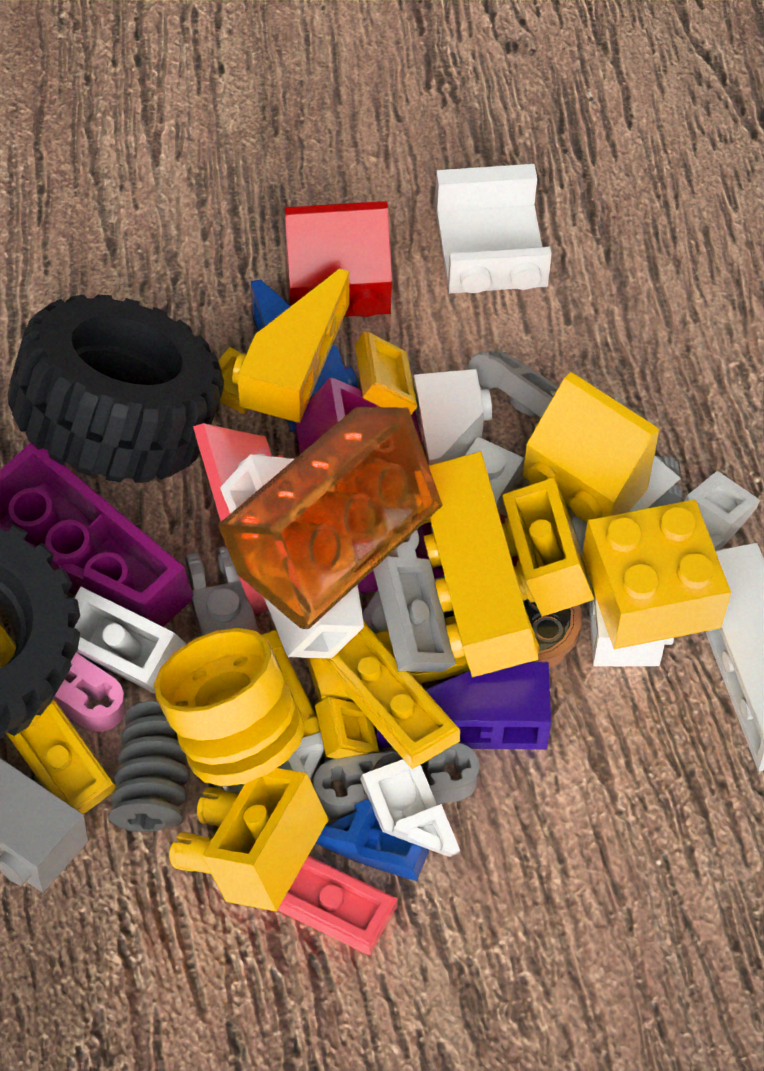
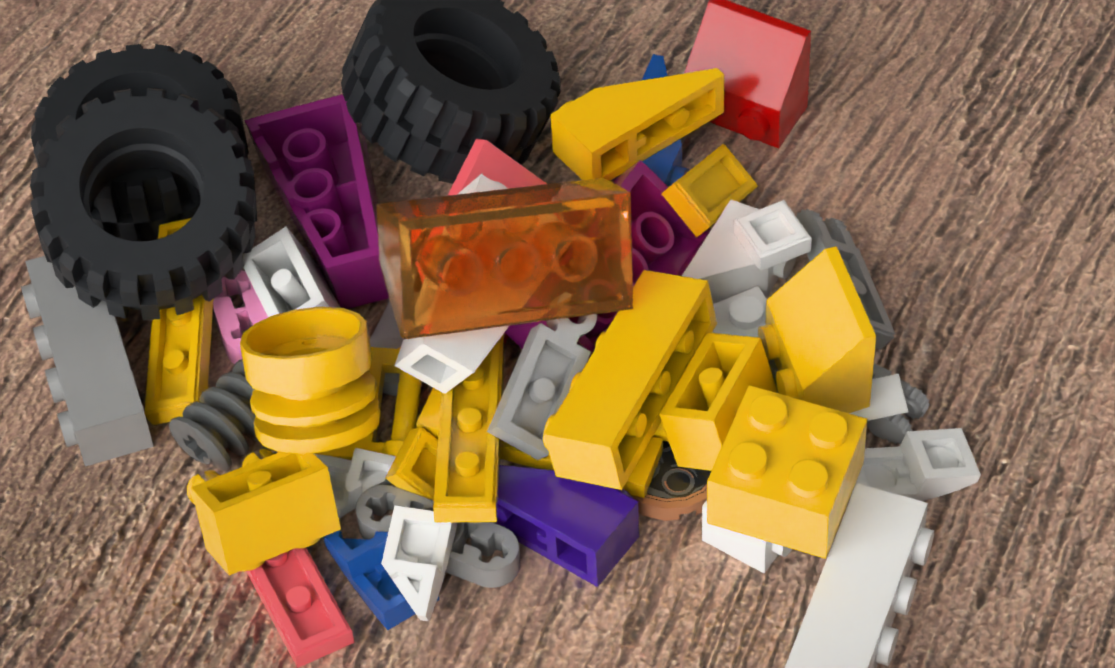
camera: 40 degrees right, 5 degrees down
(475, 388) = (772, 235): none -> white tile
(490, 229) = (928, 115): white panel -> none

